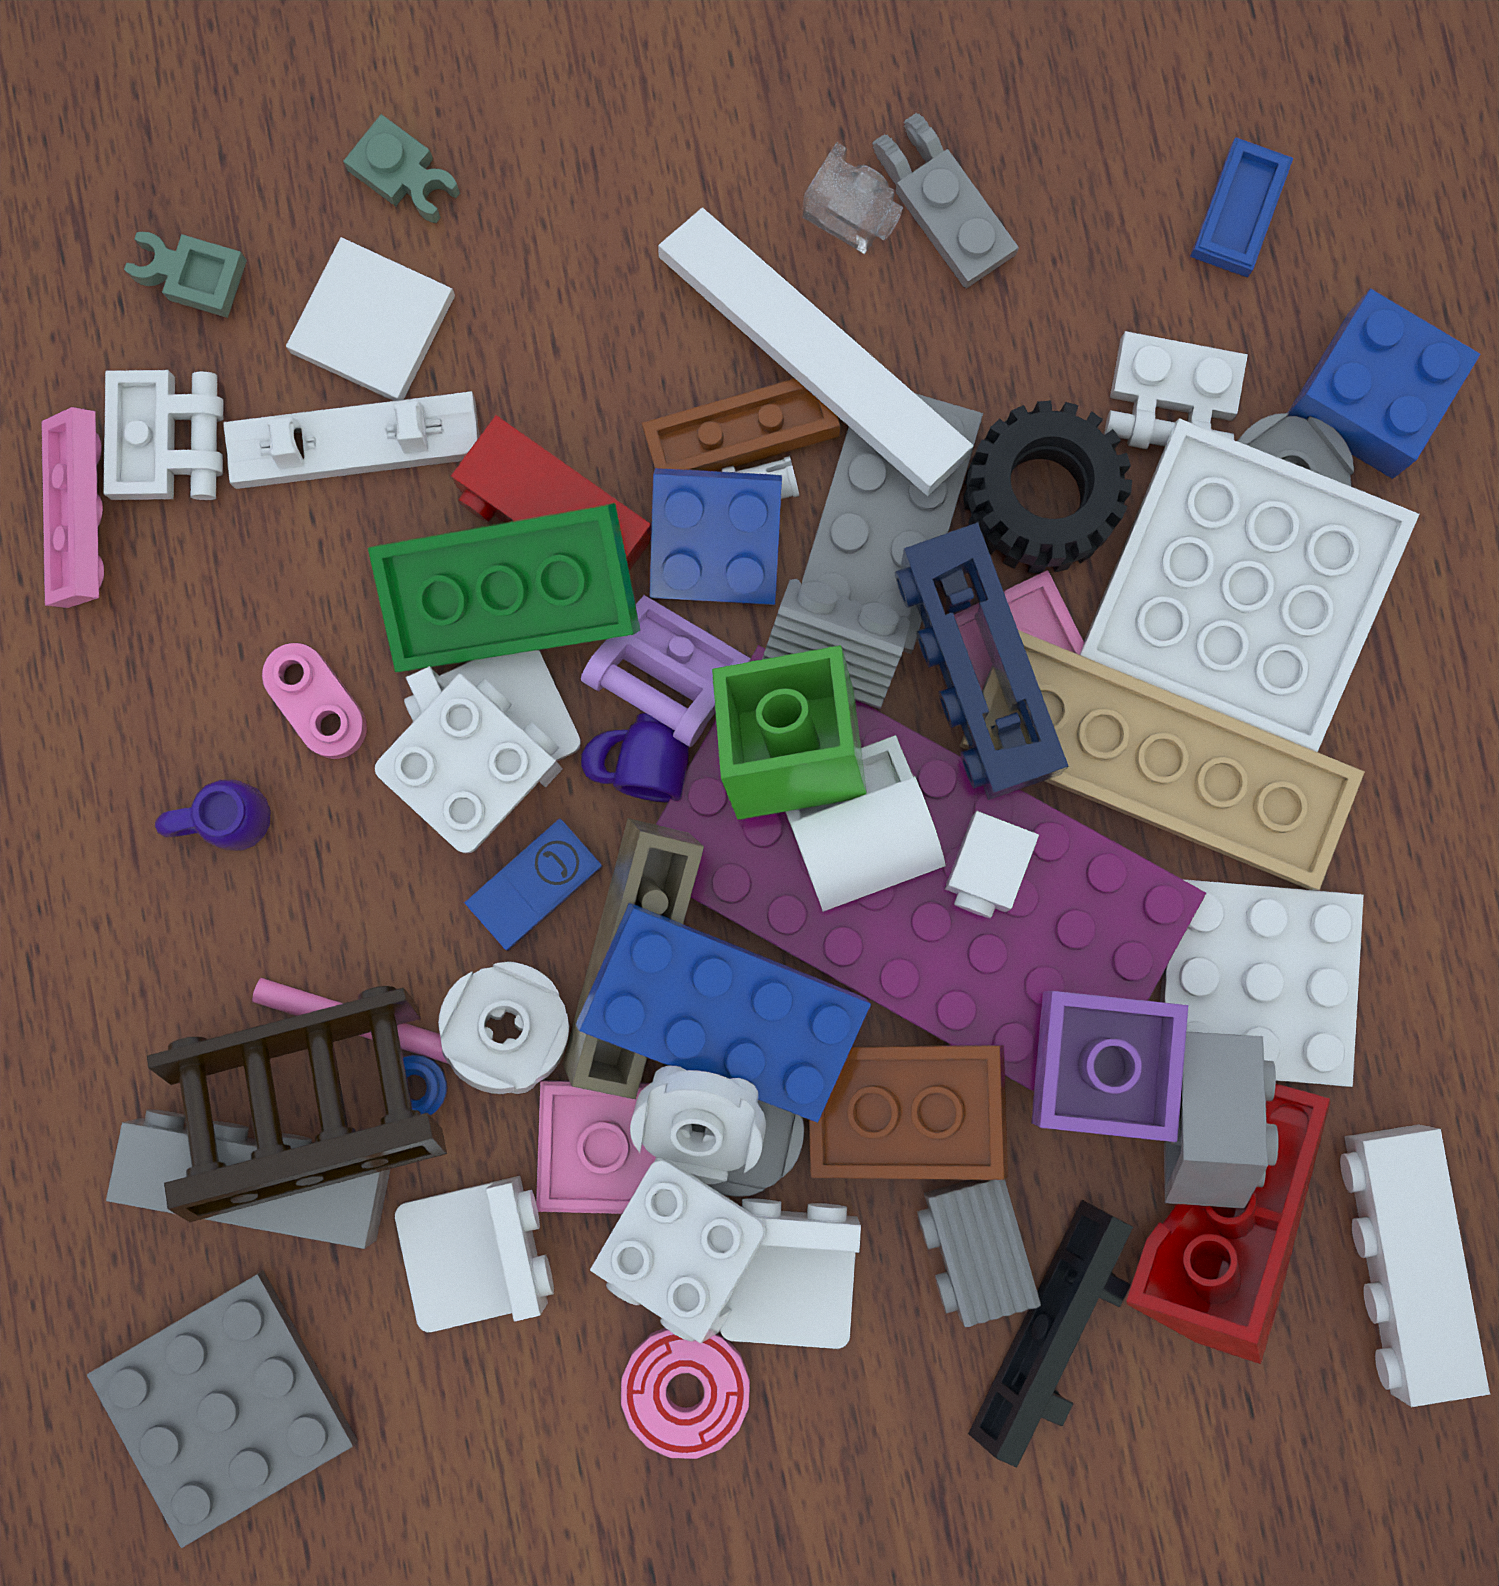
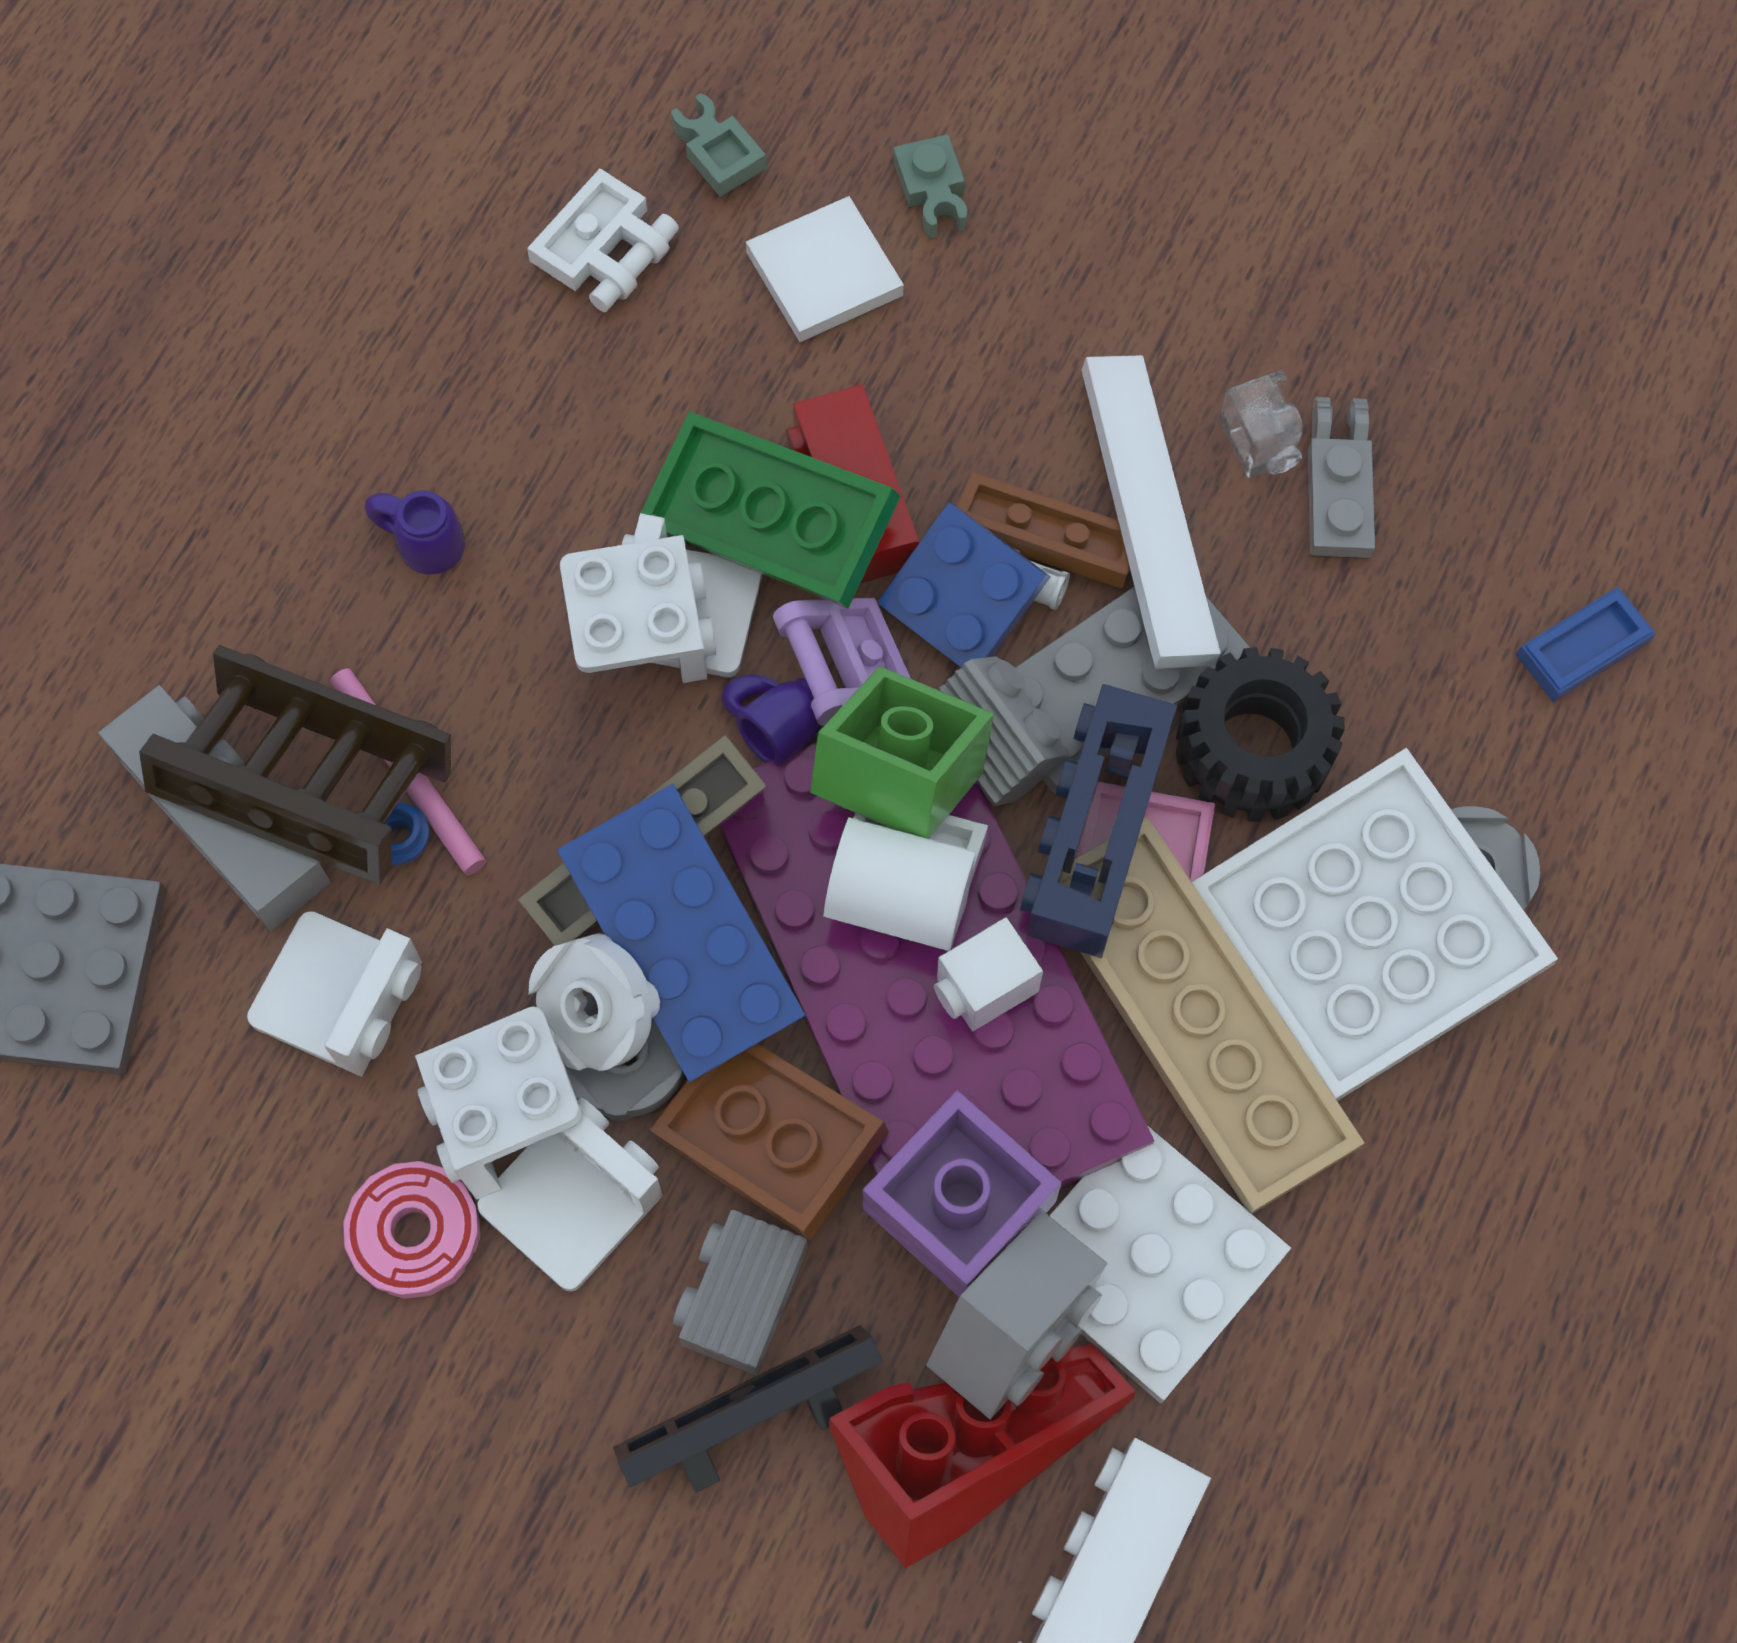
camera: 35 degrees right, 15 degrees down
(71, 508) = (495, 244): bright pink plate -> none
(313, 699) = (559, 496): bright pink plate -> none
(351, 440) = (738, 337): white hinge -> none
(490, 994) = (489, 866): white plate -> none
(533, 884) = (614, 750): blue tile -> none
(587, 1150) = (485, 973): bright pink tile -> none
(1176, 378) = (1434, 732): white plate -> none
(1385, 383) = (1606, 848): blue brick -> none

